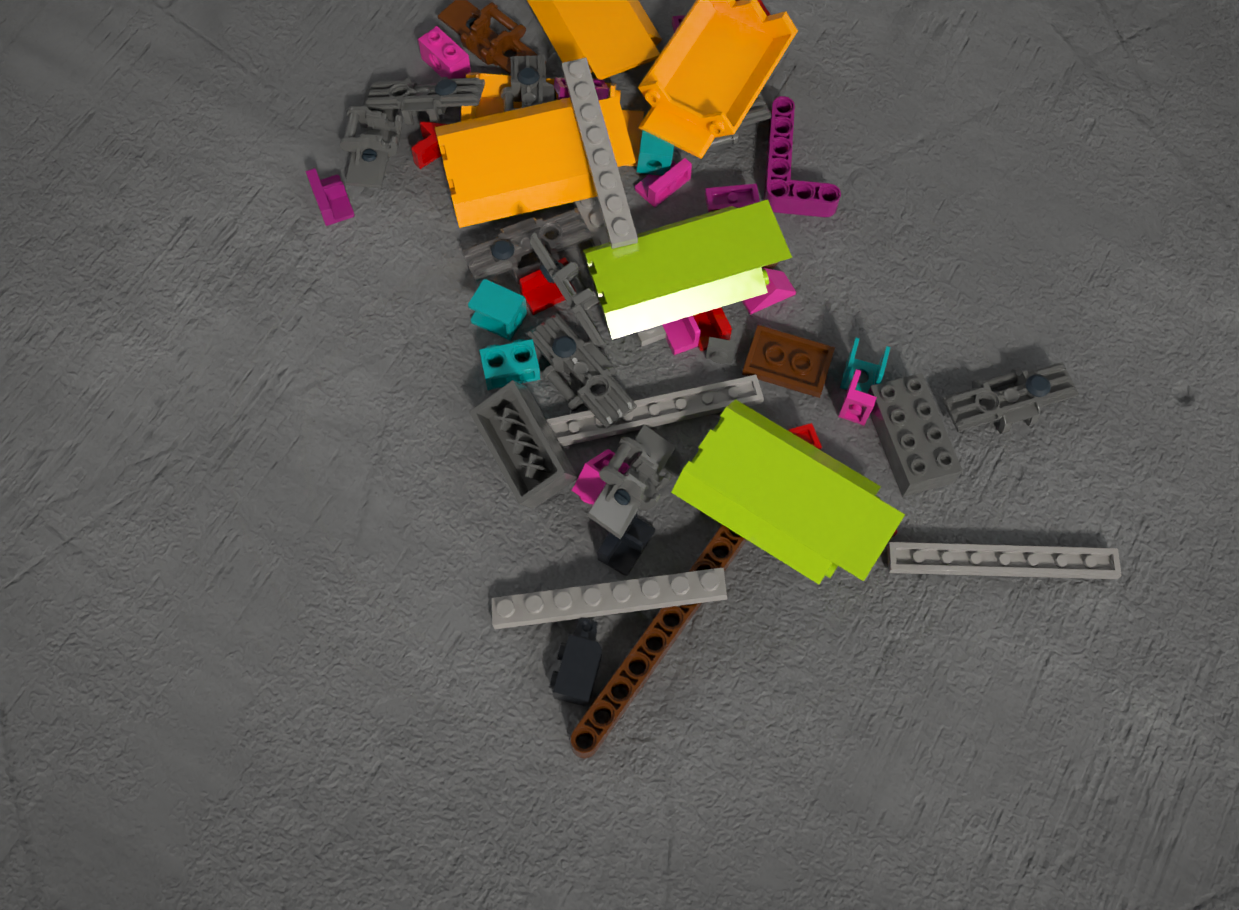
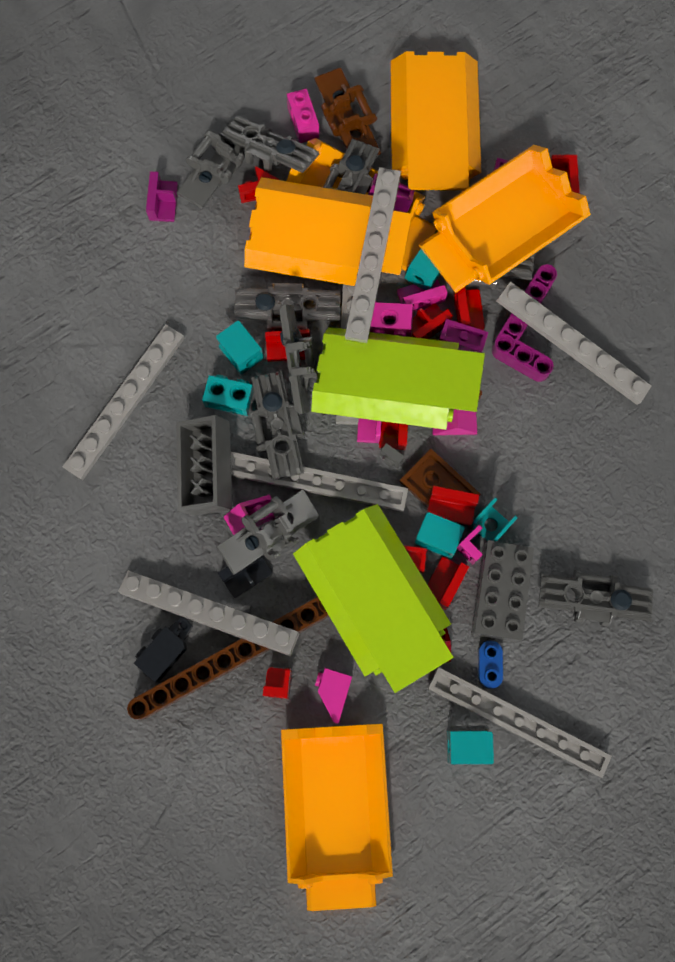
camera: 25 degrees right, 10 degrees up
(393, 425) = (123, 402): none -> light grey plate
(654, 206) = (399, 312): none -> dark pink brick
(684, 203) = (429, 321): none -> red panel
(717, 171) = (469, 308): none -> red panel
(729, 638) = (277, 683): none -> red panel
(792, 621) = (333, 691): none -> dark pink slope
(812, 368) = (453, 505): none -> red panel
(817, 405) = (439, 535): none -> teal piece
(846, 161) = (573, 343): none -> light grey plate
(849, 447) = (446, 581): none -> red panel
(867, 751) = (336, 814): none -> light orange panel
(938, 516) = (490, 664): none -> blue plate
(968, 609) = (470, 747): none -> teal piece

